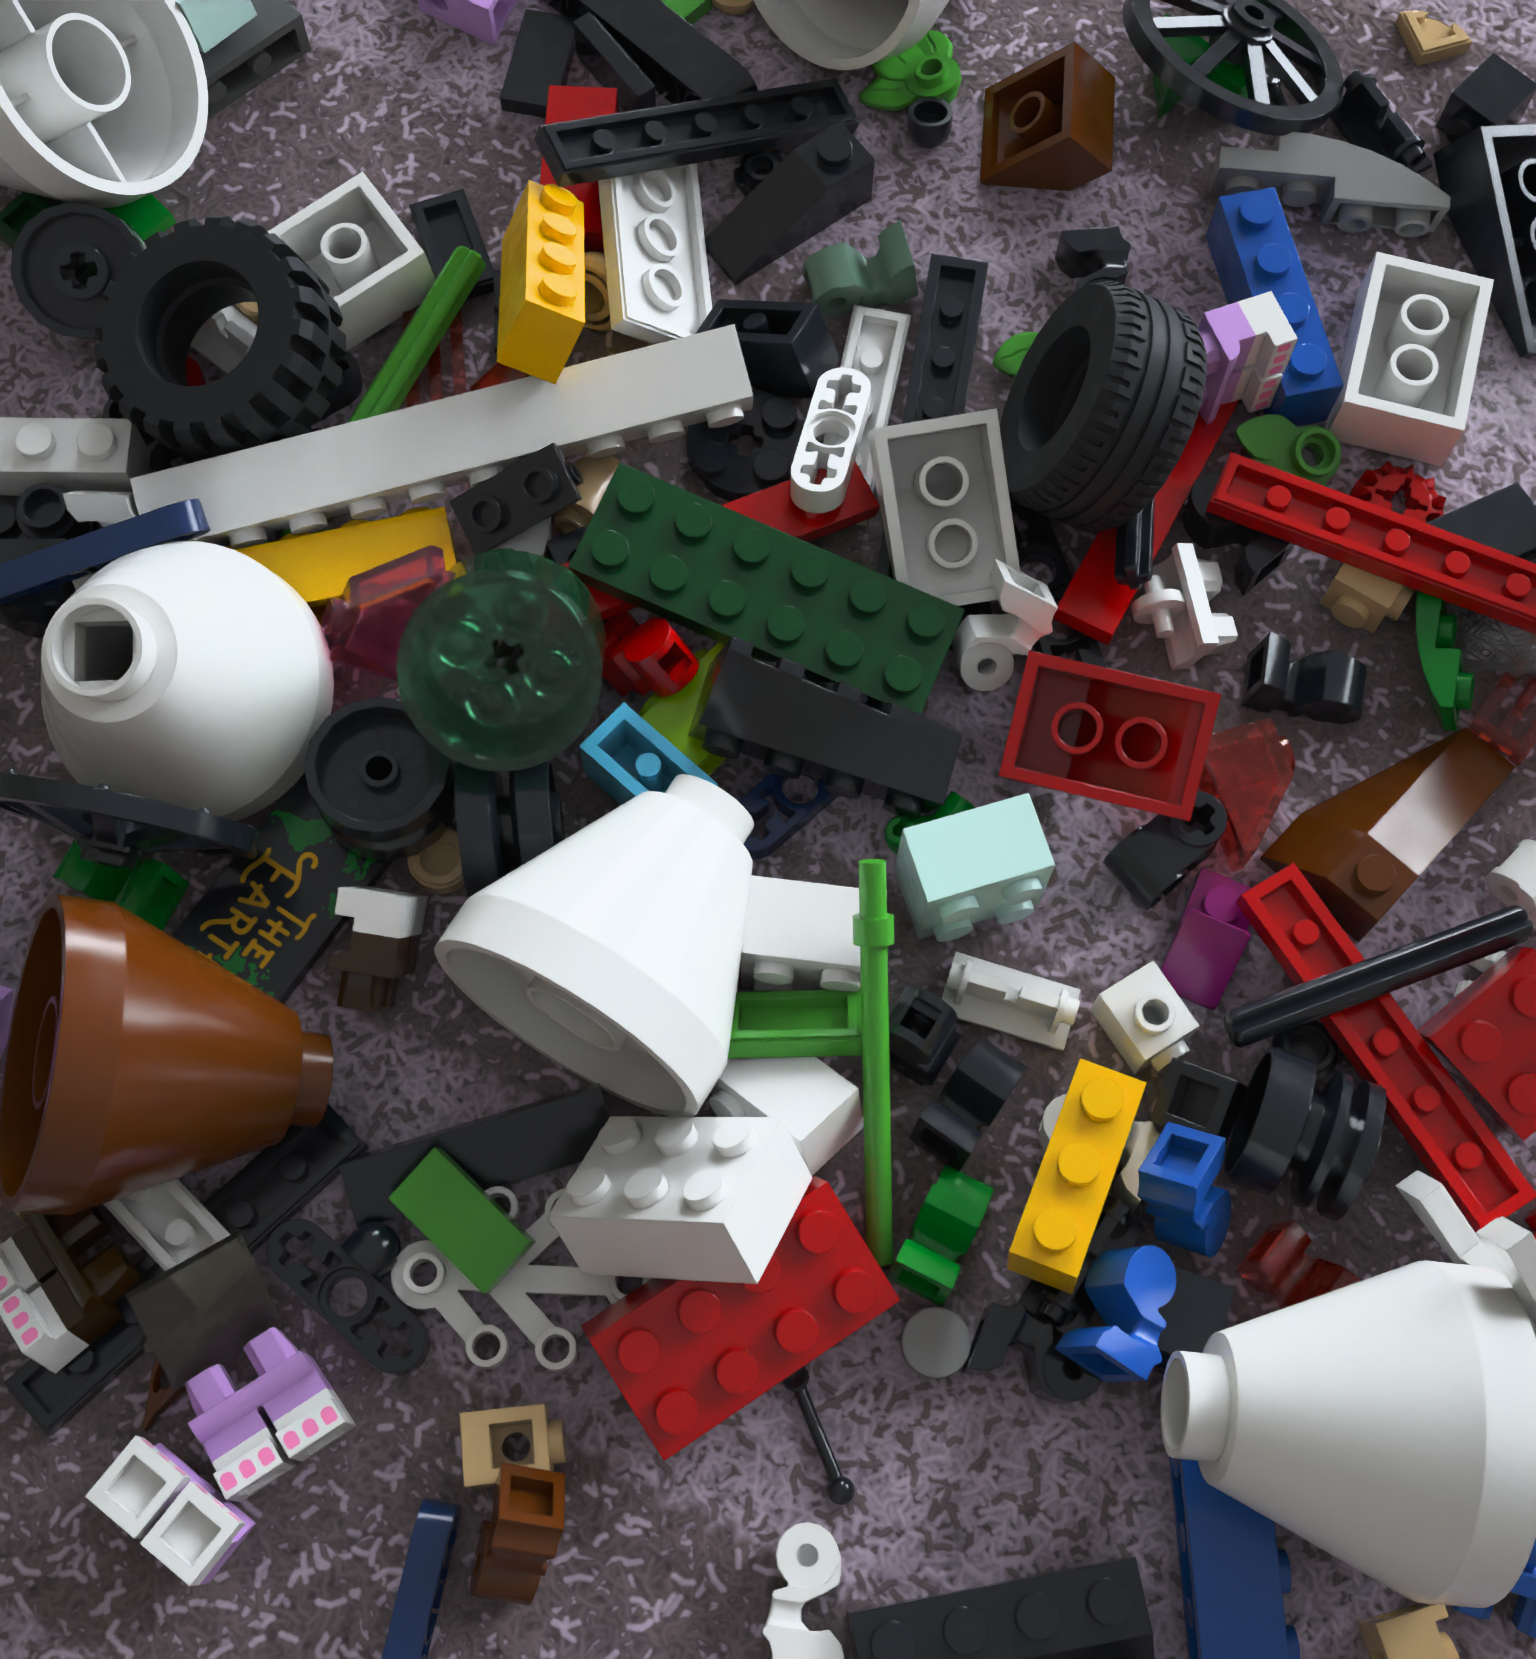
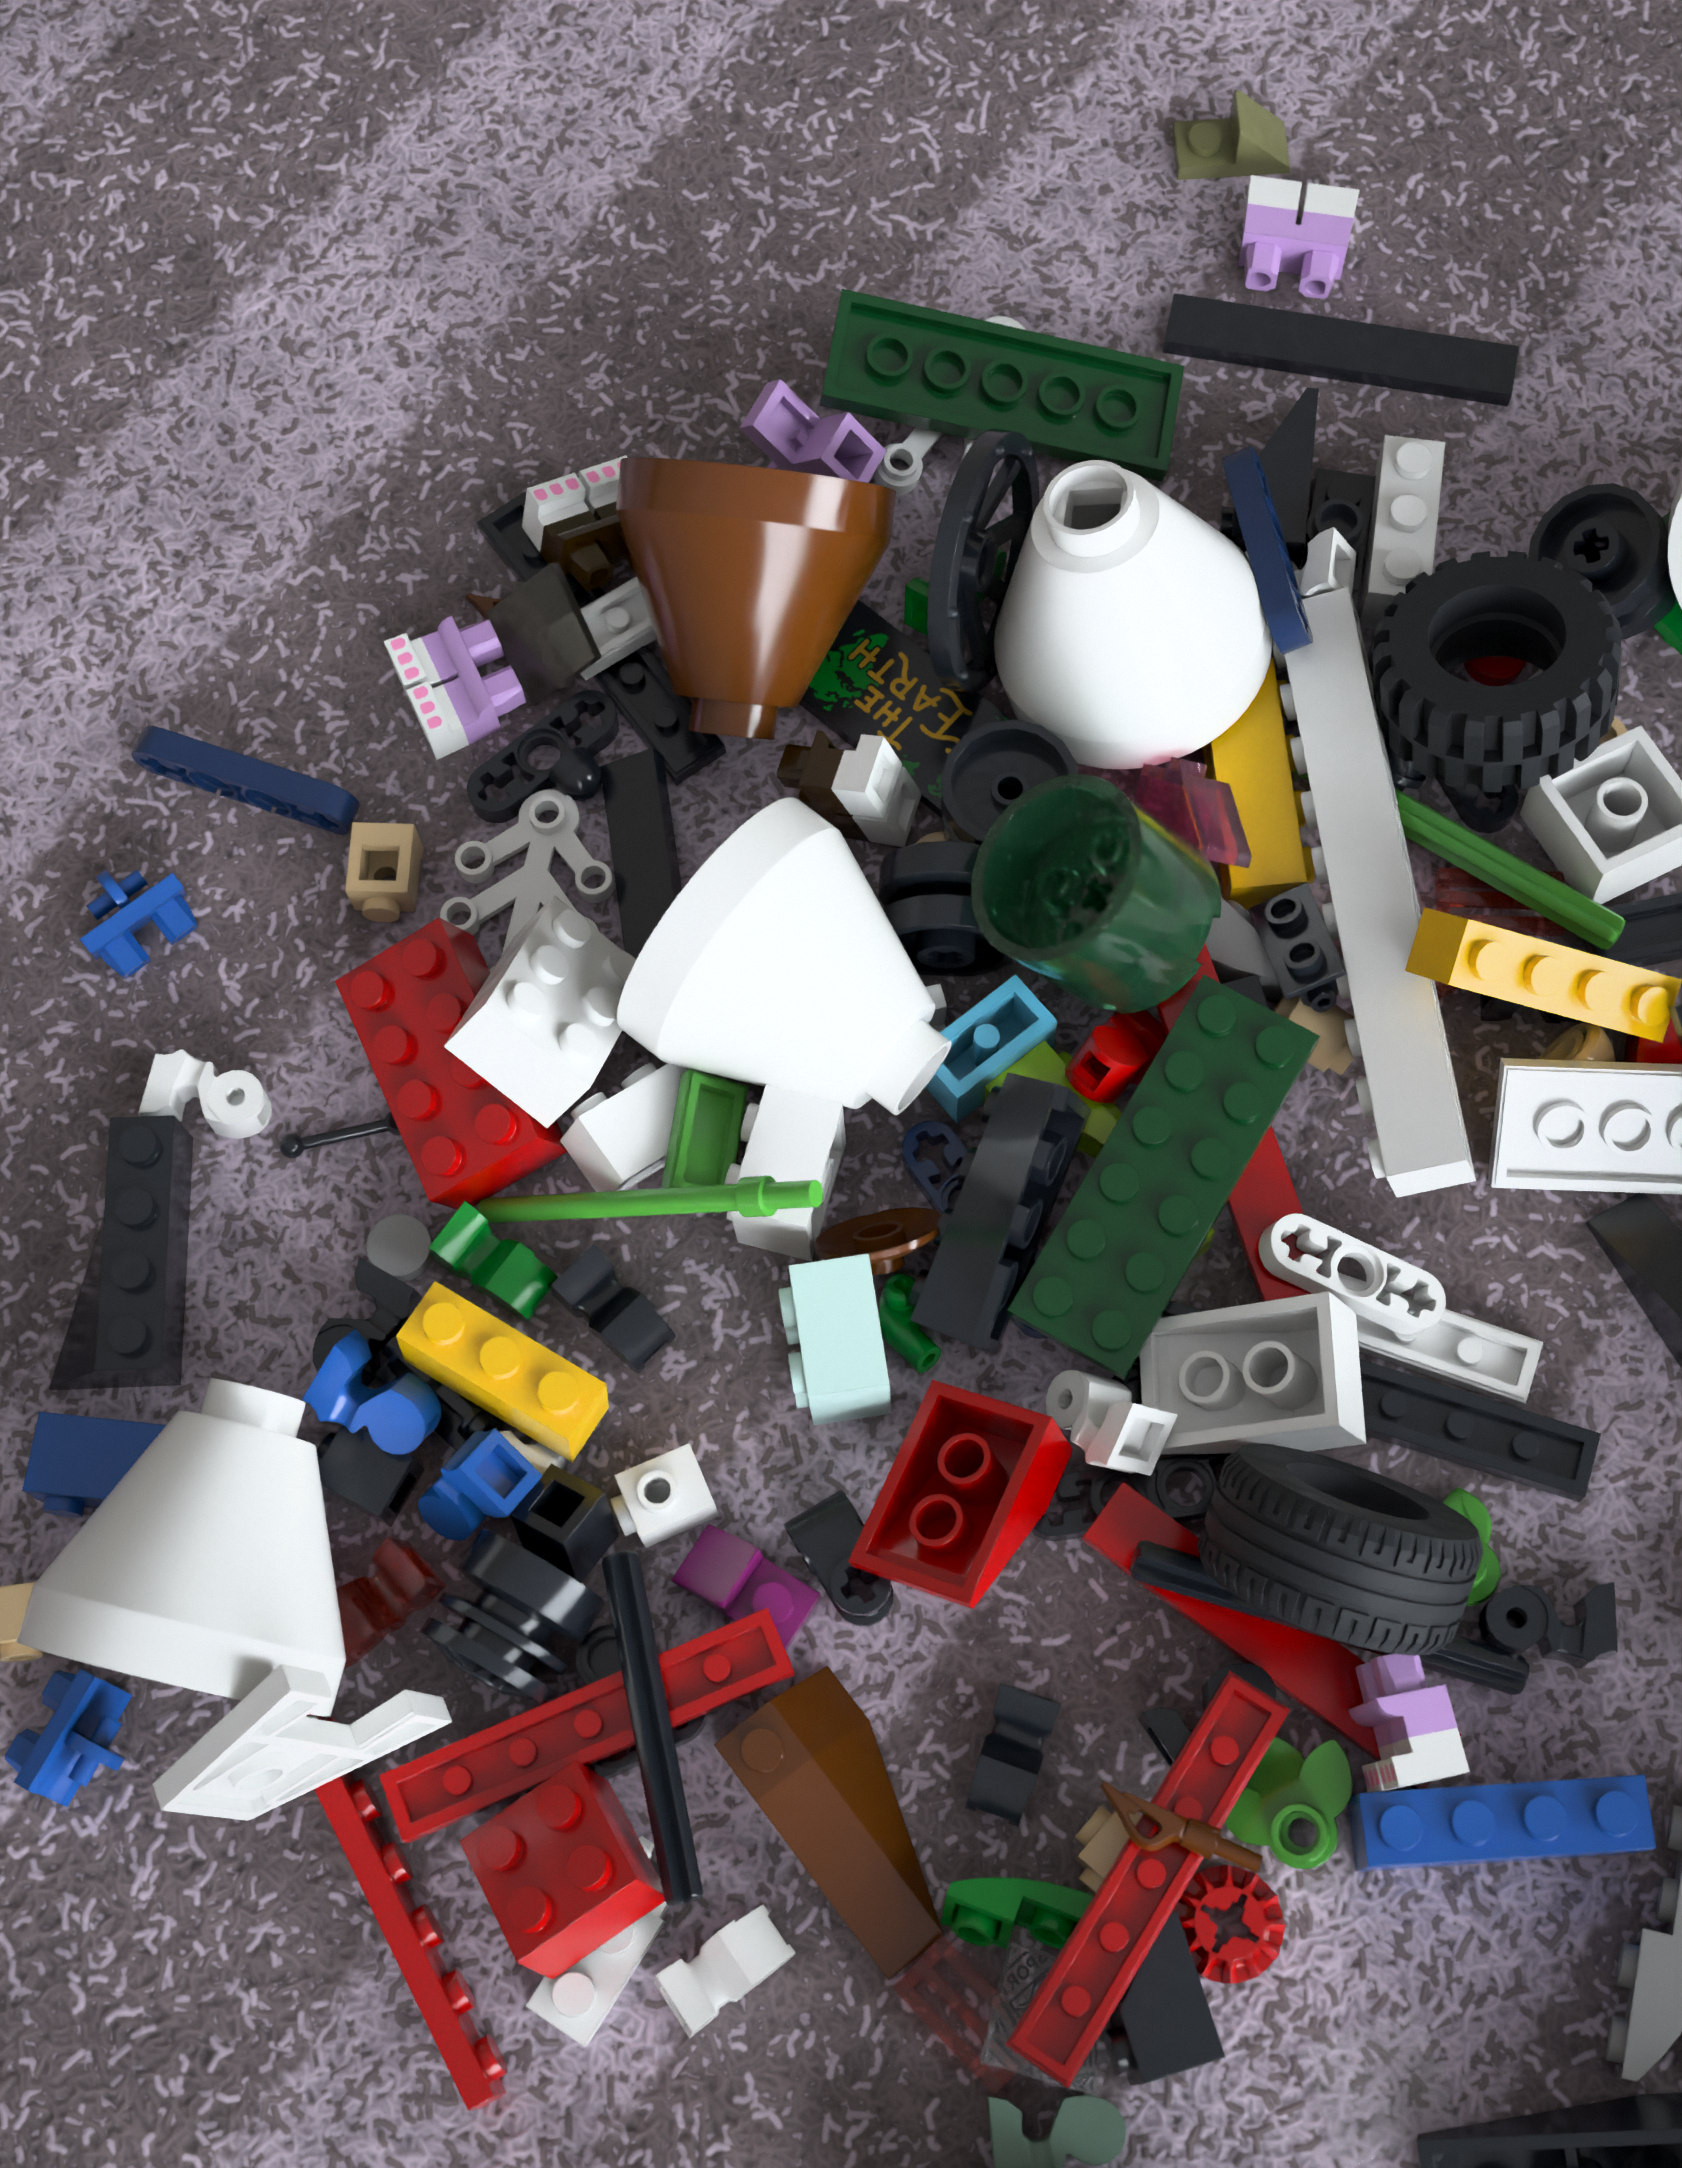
camera: 105 degrees right, 0 degrees up
(171, 1509) = (383, 601): white hips -> none
(462, 1220) = (583, 843): bright green tile -> none
(521, 1534) = (307, 861): reddish brown leg -> none
(733, 476) = (1335, 1204): black plate -> none
(781, 343) = (1486, 1232): black slope -> none
(846, 278) = (1577, 1344): sand green leg -> none
(855, 828) = (883, 1235): none -> reddish brown dish
(921, 1034) = (682, 1264): black leg -> none
(1011, 1001) = (713, 1371): white hinge -> none
(1180, 607) = (1150, 1636): white hips -> none
(1249, 775) = (901, 1656): clear red slope -> none
(1360, 522) = (1172, 1827): none -> reddish brown hand
(1411, 359) = (1413, 1973): white brick -> none

